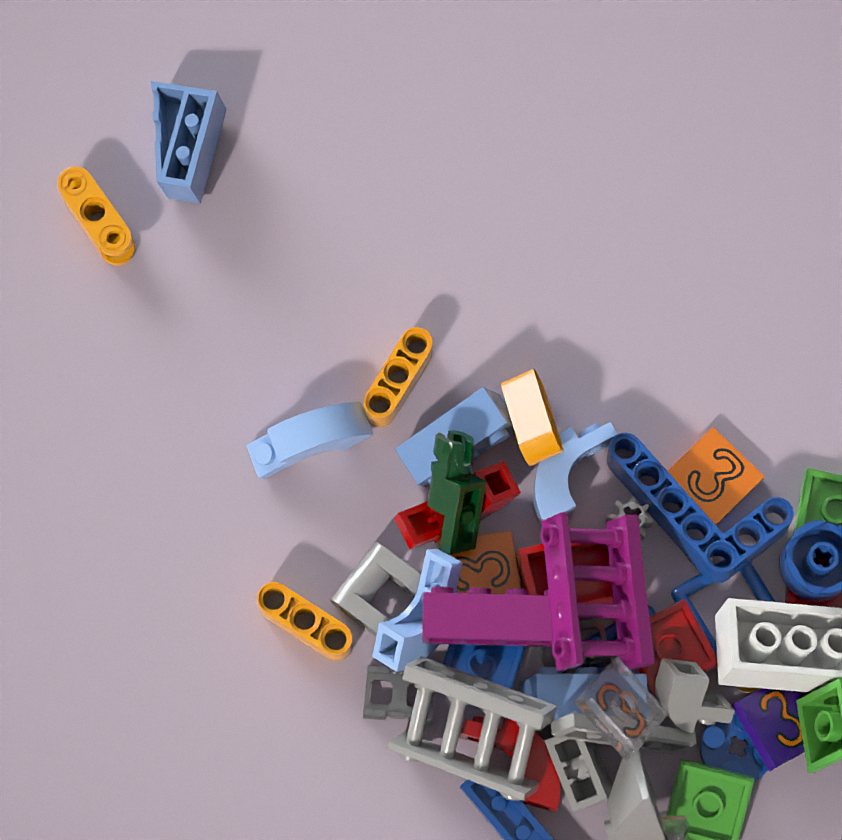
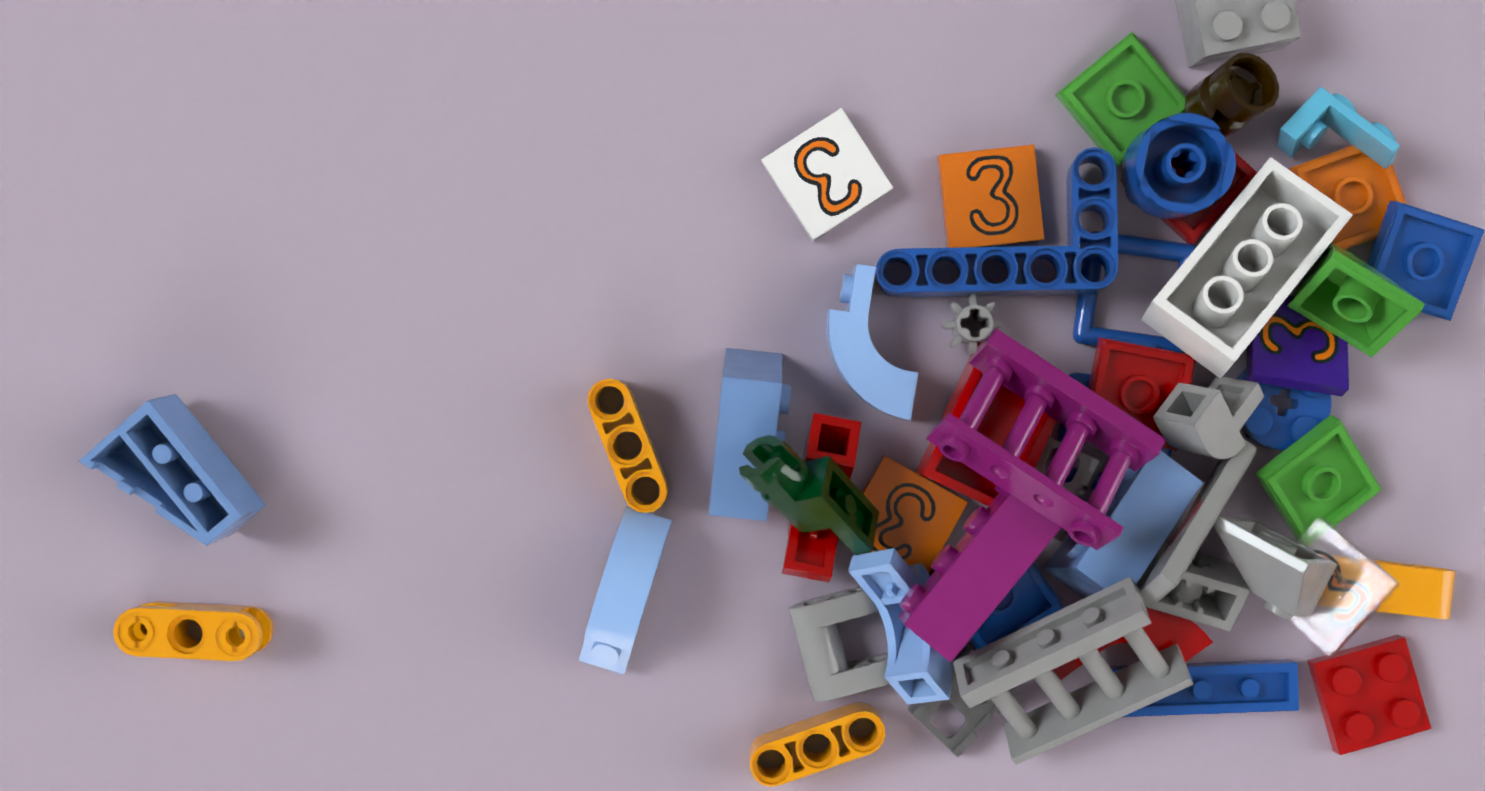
camera: 45 degrees left, 15 degrees up
(532, 417) = (788, 343): beam -> none
(621, 708) = (1184, 511): clear tile -> none
(647, 373) = (826, 174): none -> white tile

